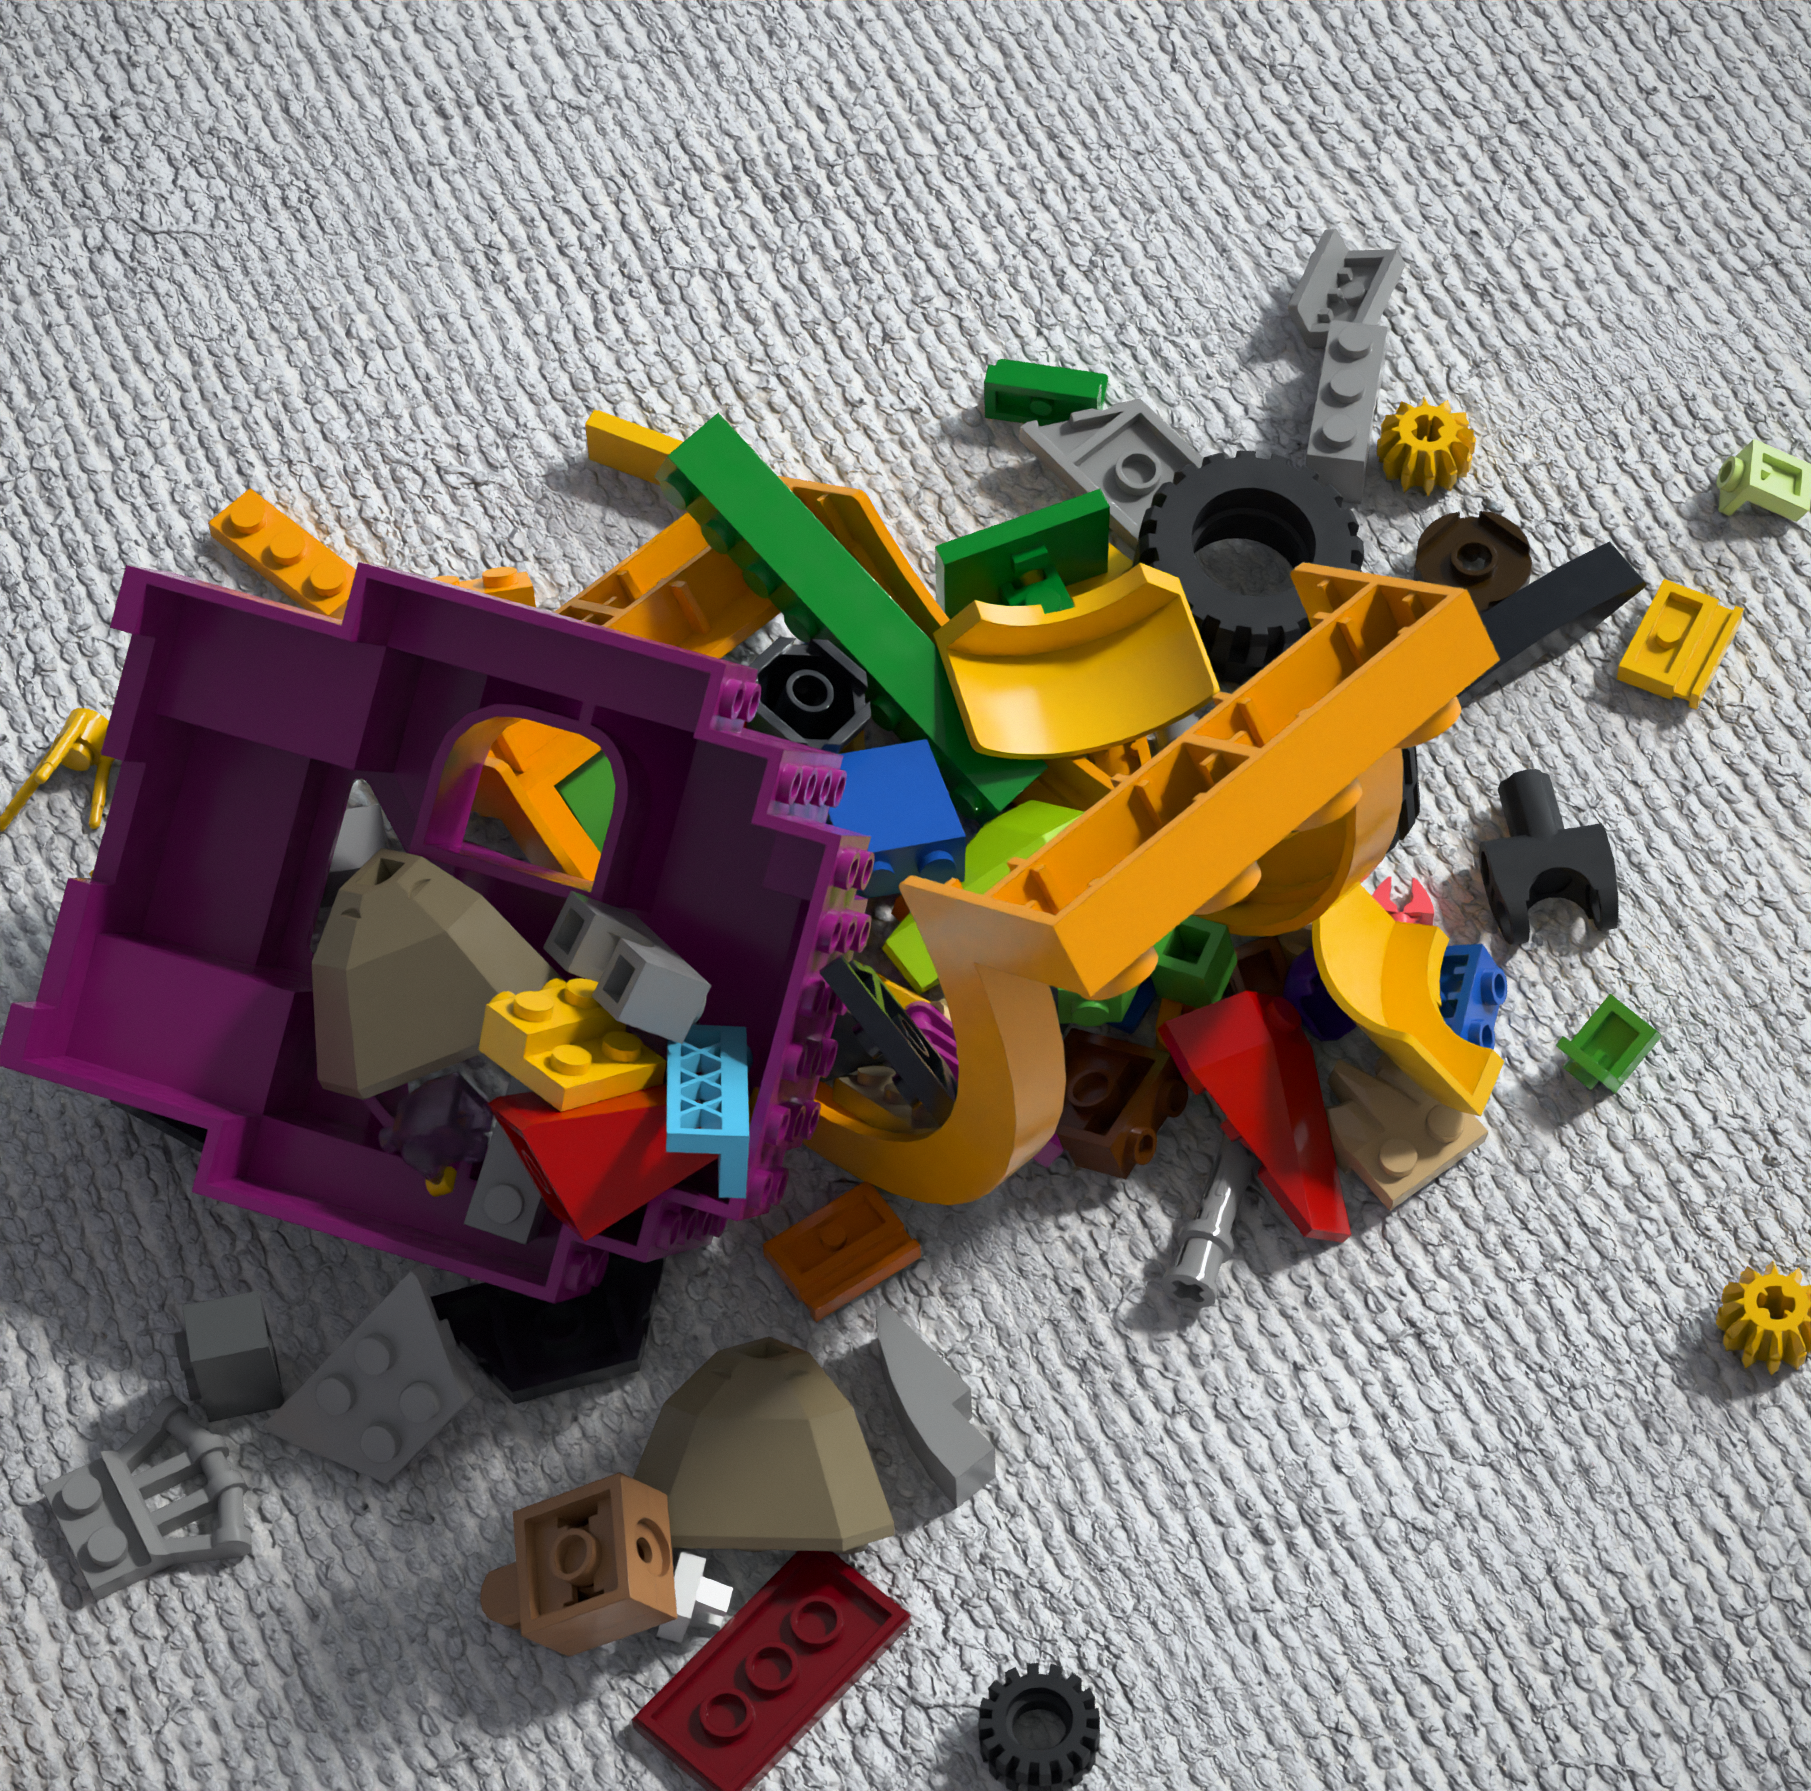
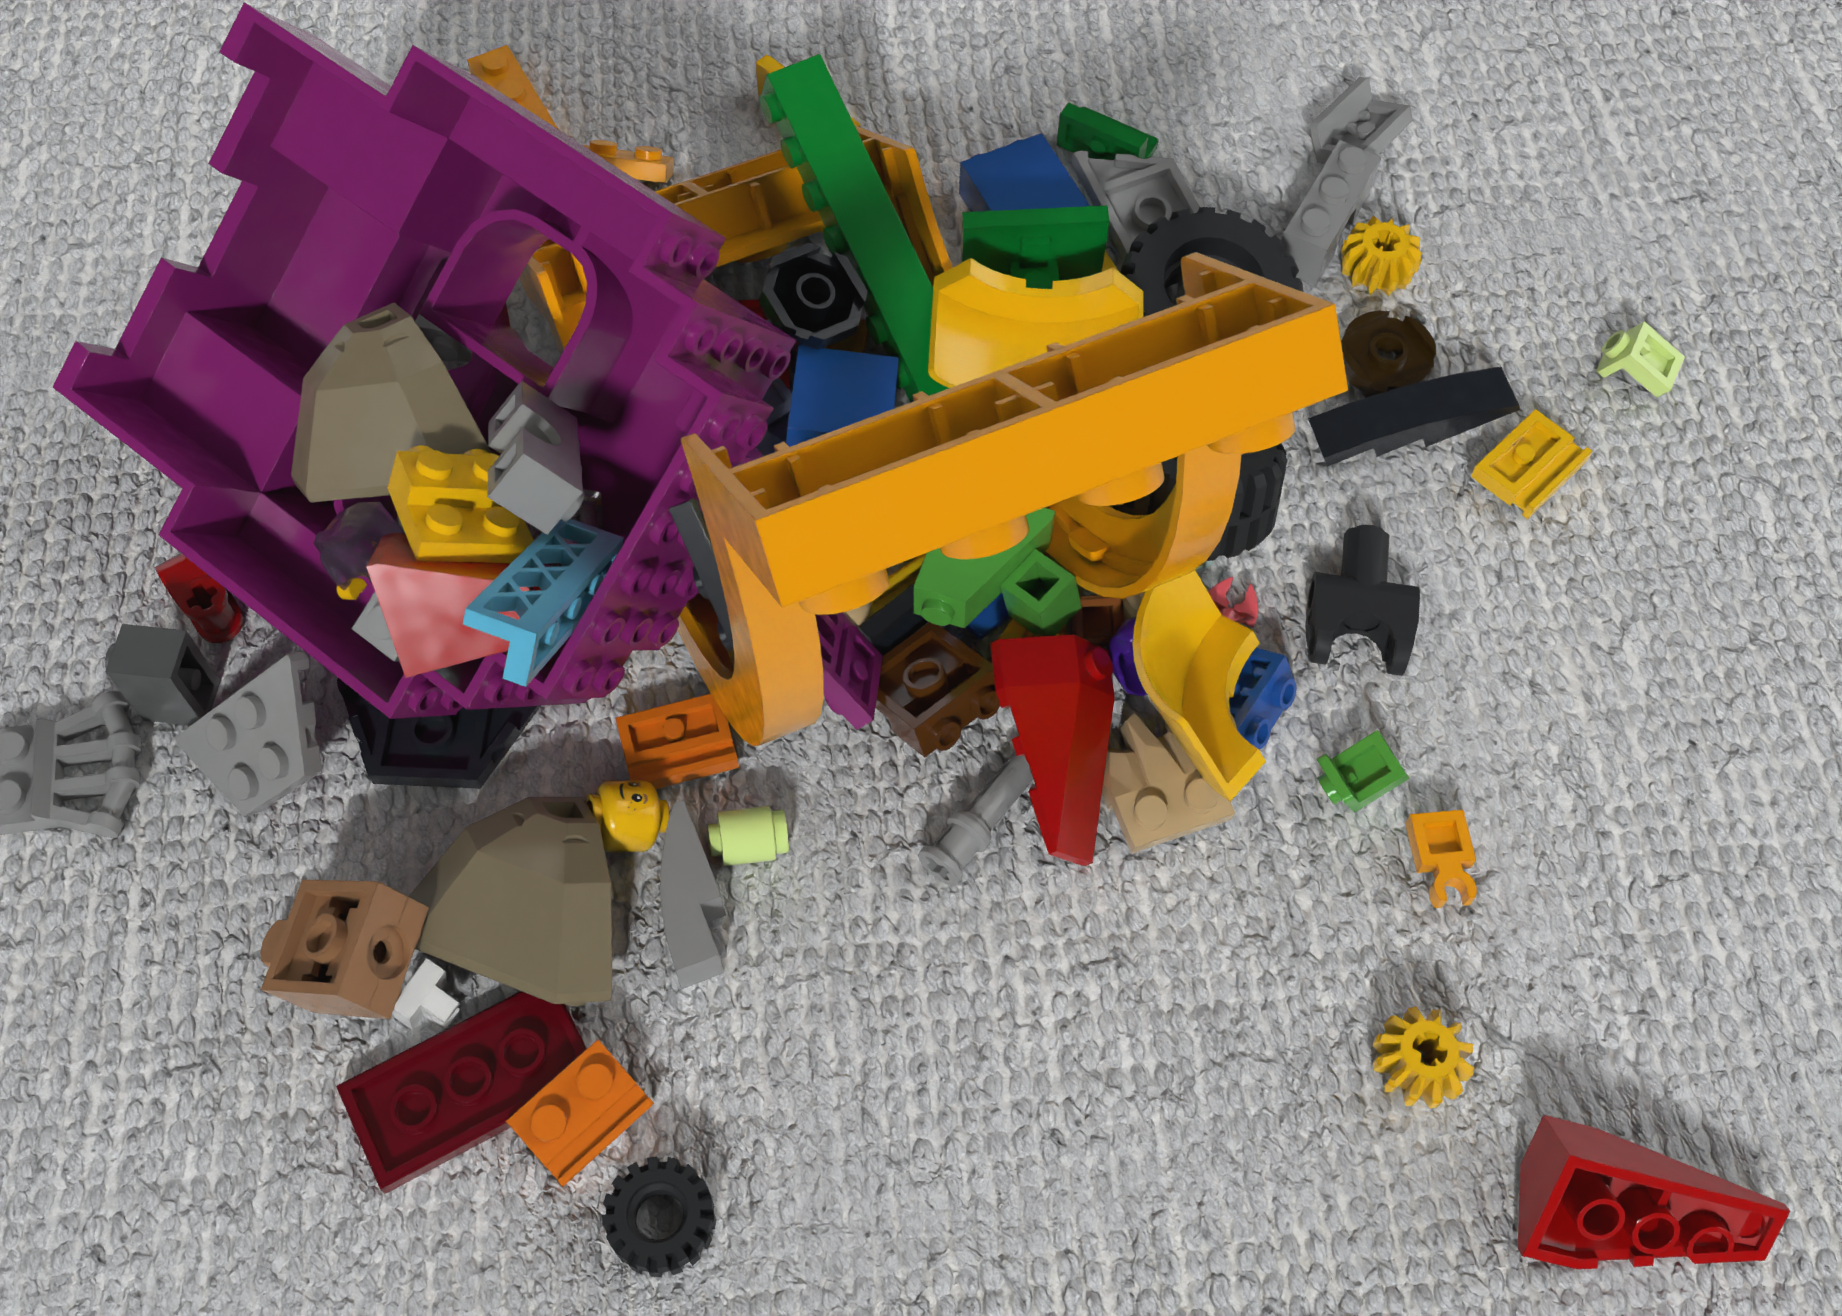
camera: 15 degrees right, 5 degrees up
(209, 1254) = (201, 599): none -> red piece
(832, 1334) = (628, 814): none -> yellow head
(910, 1657) = (580, 1112): none -> orange plate
(967, 1322) = (748, 835): none -> yellowish green brick
(968, 484) = (1017, 178): none -> blue brick
(1724, 1099) = (1443, 846): none -> light orange plate

